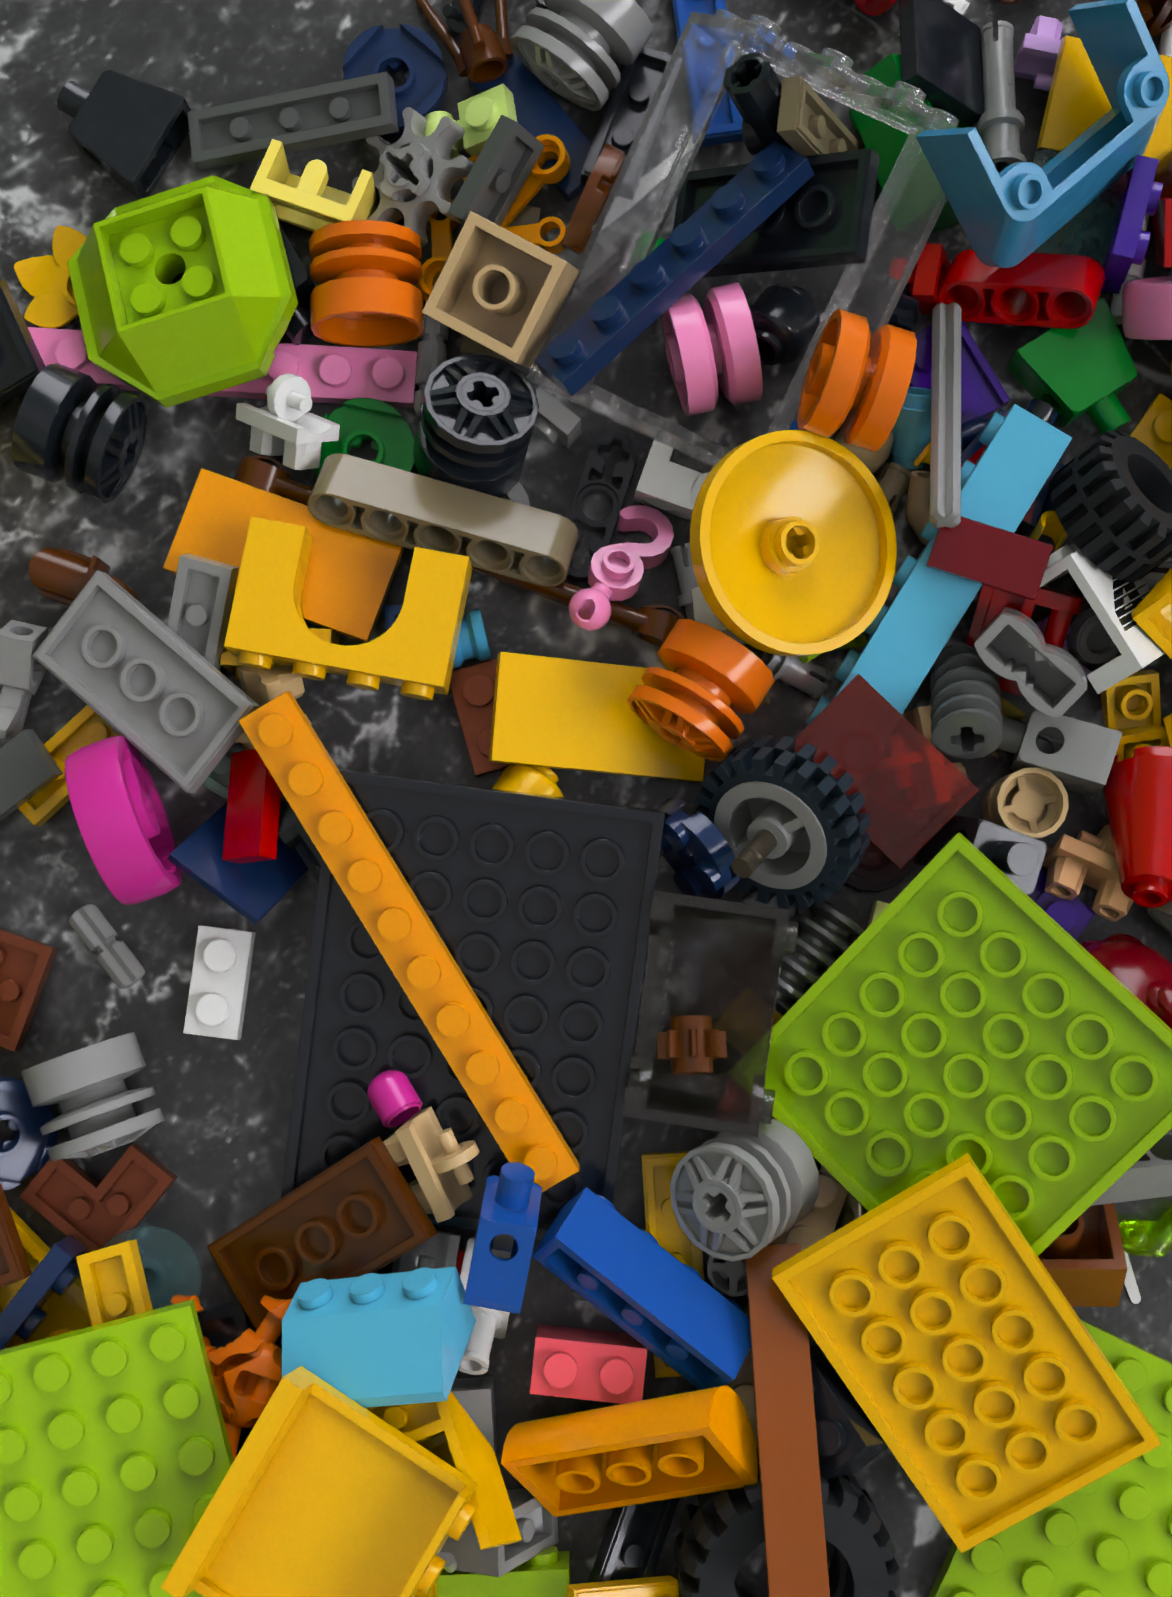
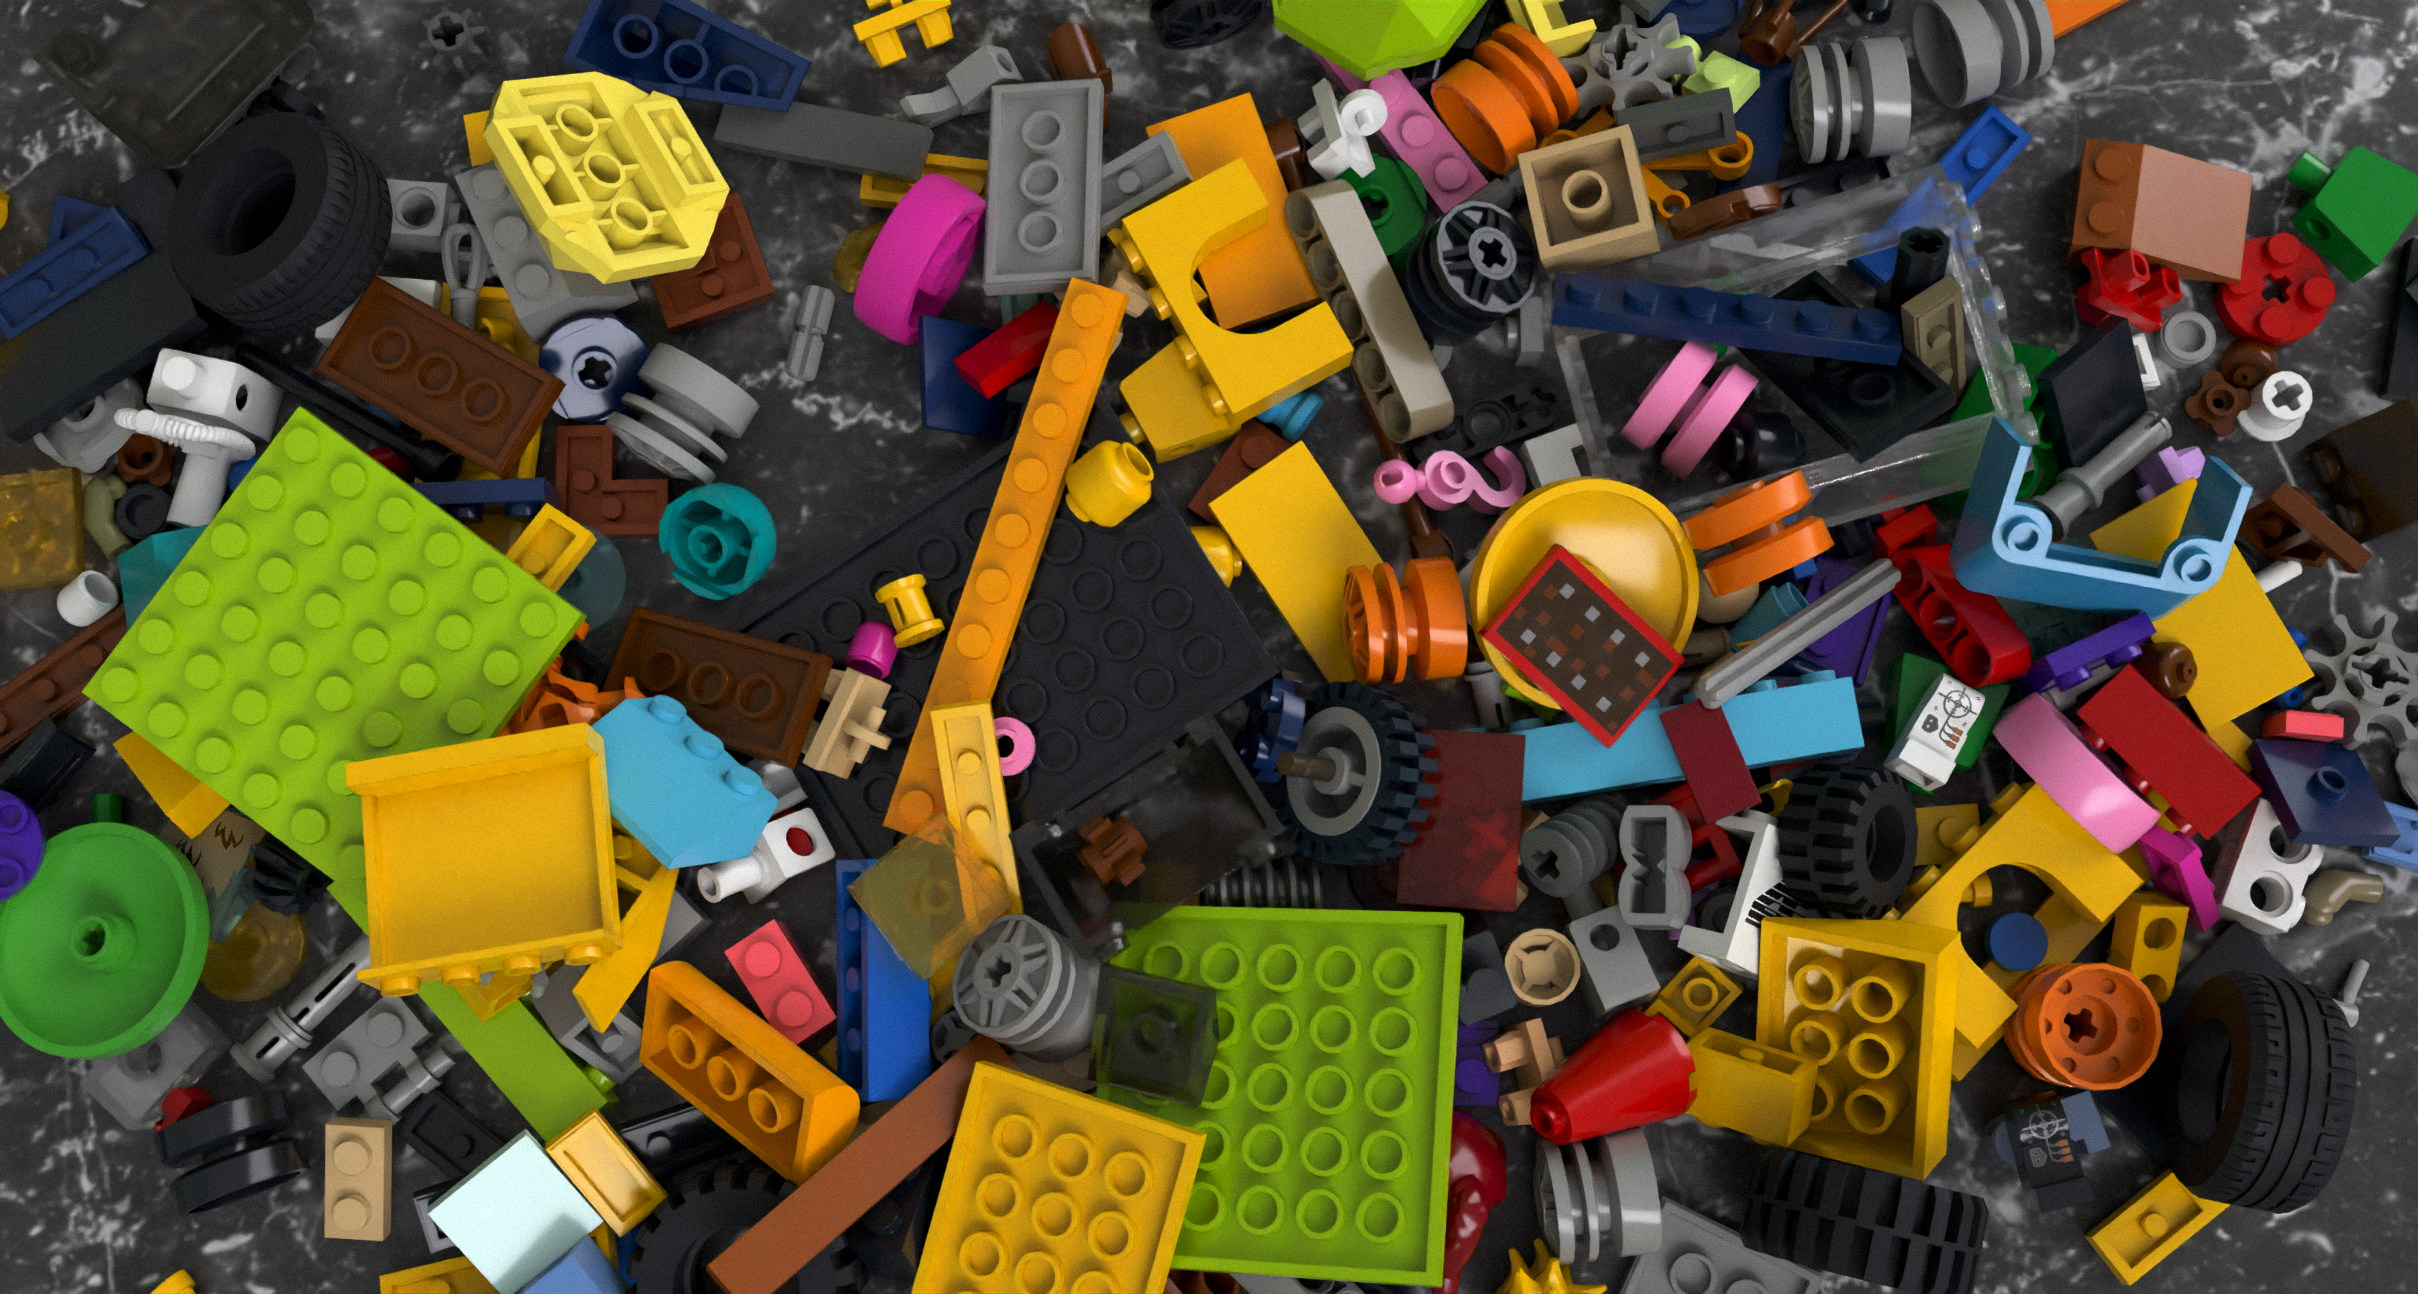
camera: 45 degrees right, 5 degrees down
(72, 860) = (853, 254): none -> clear yellow arm
(211, 1145) = (718, 539): none -> teal cylinder
(219, 982) = (853, 444): white plate -> none
(388, 1049) = (909, 610): none -> yellow bush
(390, 727) = (1169, 409): none -> yellow torso
(420, 823) = (1108, 483): none -> yellow head
(506, 1224) = (832, 824): blue torso -> none
(550, 1043) = (1023, 745): none -> bright pink plate
(583, 1122) = (976, 788): none -> yellow plate
(619, 1210) = (929, 896): none -> clear yellow plate
(832, 578) = (1581, 645): none -> tile
(856, 1129) = (1153, 1035): none -> clear smoke slope
(1096, 378) = (1935, 733): none -> white leg

